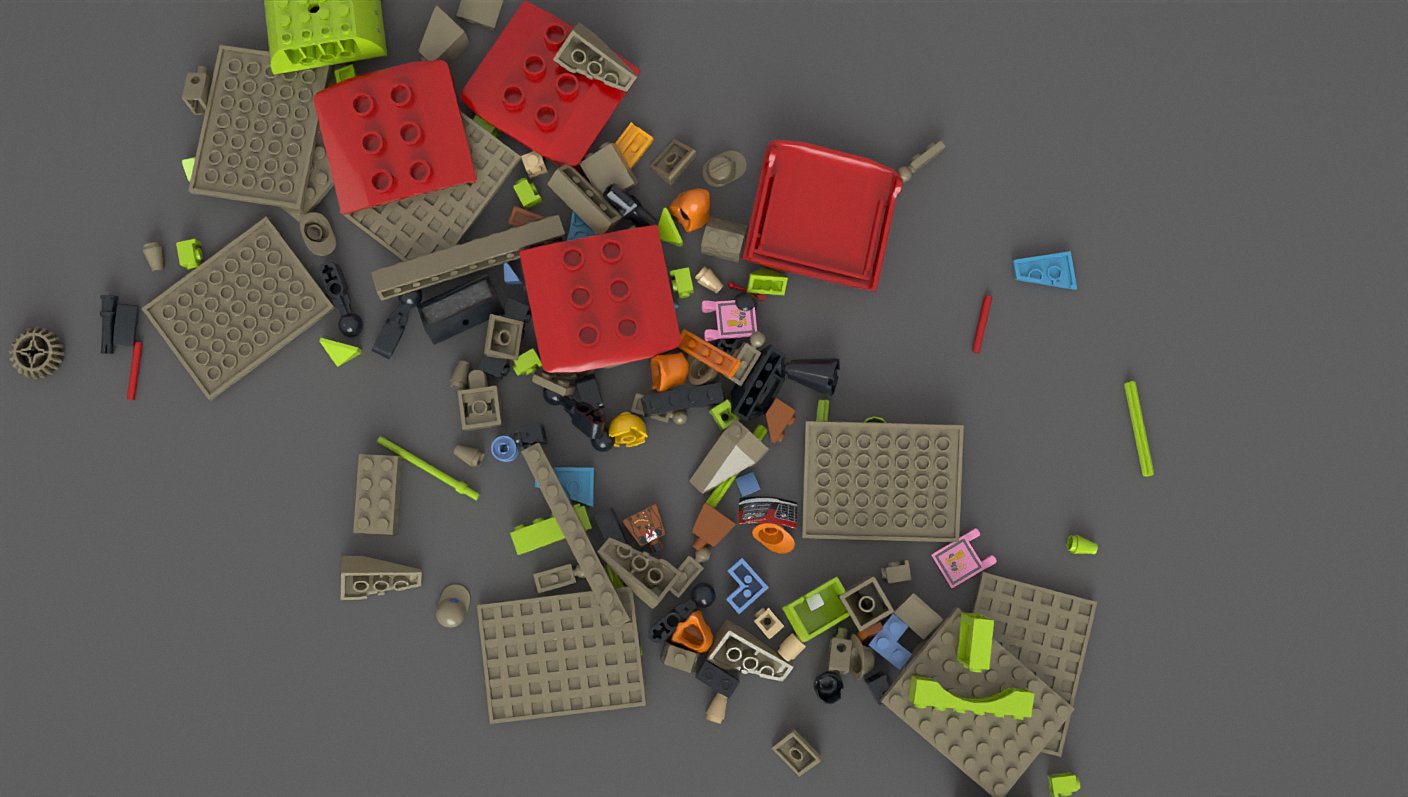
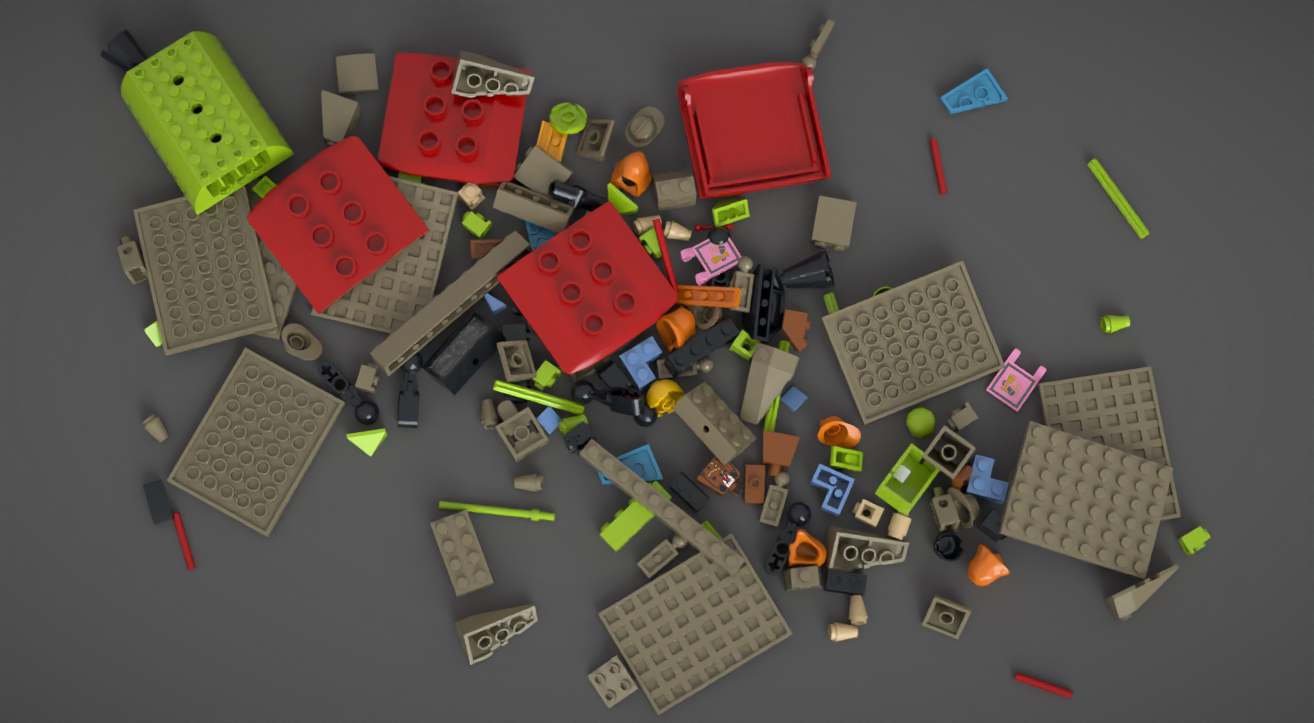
camera: 30 degrees left, 5 degrees down
(38, 366) = (102, 558): dark tan gear -> none
(108, 317) = (137, 499): black pin -> none
(189, 253) = (189, 412): lime brick -> none
(364, 294) = (367, 378): none -> dark tan brick
(453, 606) = (575, 625): dark tan cap -> none
(463, 674) = (613, 682): none -> dark tan hinge
(505, 449) = (560, 461): medium blue wheel -> none
(510, 380) = (538, 397): none -> lime axle
(513, 405) = (548, 420): none -> medium blue slope
(529, 417) = (568, 424): none -> lime cone
(548, 381) = (570, 383): dark tan plate -> none
(617, 385) = (637, 361): none -> medium blue brick
(640, 572) = (737, 517): dark tan wedge -> none
(655, 130) = (568, 118): none -> lime tile
(661, 476) = (714, 423): none -> dark tan brick
(676, 546) = (754, 484): none -> dark orange plate
(683, 260) = (644, 224): none -> tan cone
(687, 298) = (665, 254): none -> red bar
(694, 722) = (841, 631): none -> tan cone
(767, 510) = (822, 413): sticker -> none
(770, 563) = (846, 459): none -> lime slope
(853, 724) = (986, 566): none -> orange piece
(856, 559) = (921, 422): none -> lime hair
(858, 336) = (833, 223): none -> dark tan brick
(917, 615) = (998, 445): dark tan slope -> none
(975, 641) = (1058, 441): lime window -> none
(1010, 701) = (1041, 503): lime arch -> none

